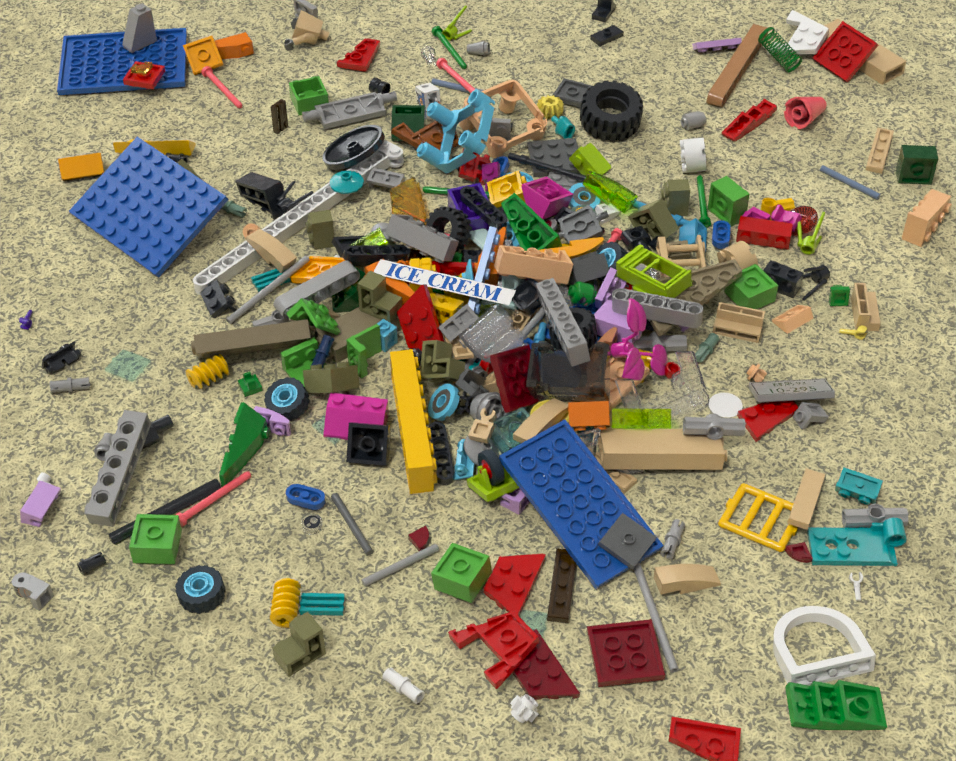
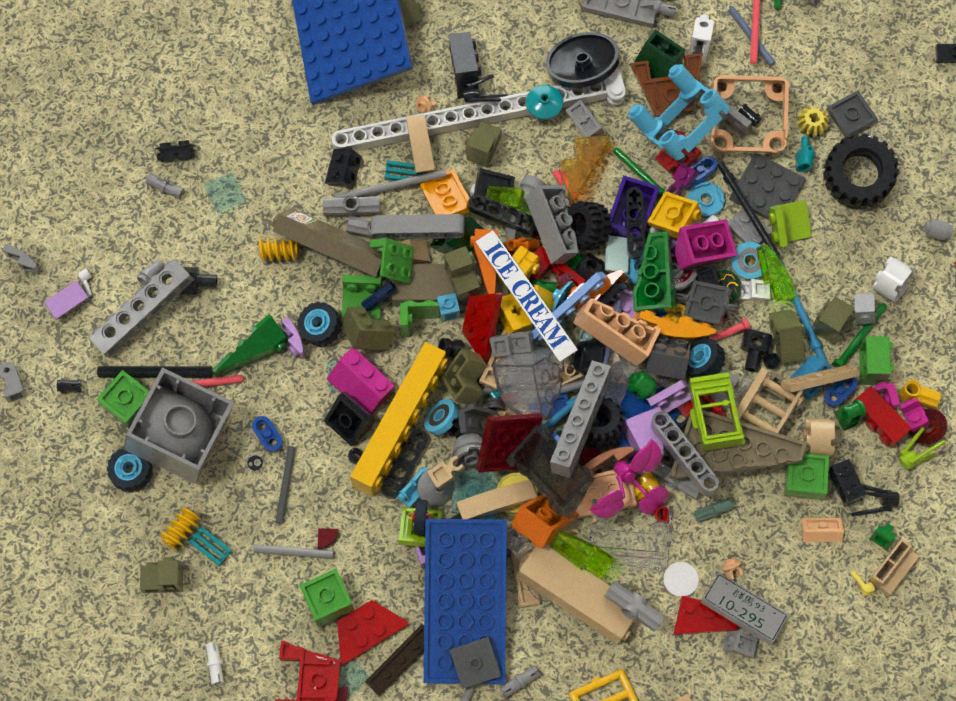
camera: 35 degrees right, 25 degrees up
(26, 322) = (172, 86): dark purple hand -> none
(225, 520) = (178, 425): none -> light grey piece
(231, 207) = (427, 60): sand green axle -> none
(247, 314) = (363, 206): none -> light grey piece
(249, 384) = (305, 283): green tile -> none
(394, 471) = (352, 458): none -> black hinge
(460, 267) = (563, 279): none -> clear pink plate
(694, 177) = (864, 308): none -> light grey brick
(702, 226) = (819, 378): none -> tan tile
(739, 322) = (764, 504): tan piece -> none
(744, 233) = (850, 415): none -> green piece

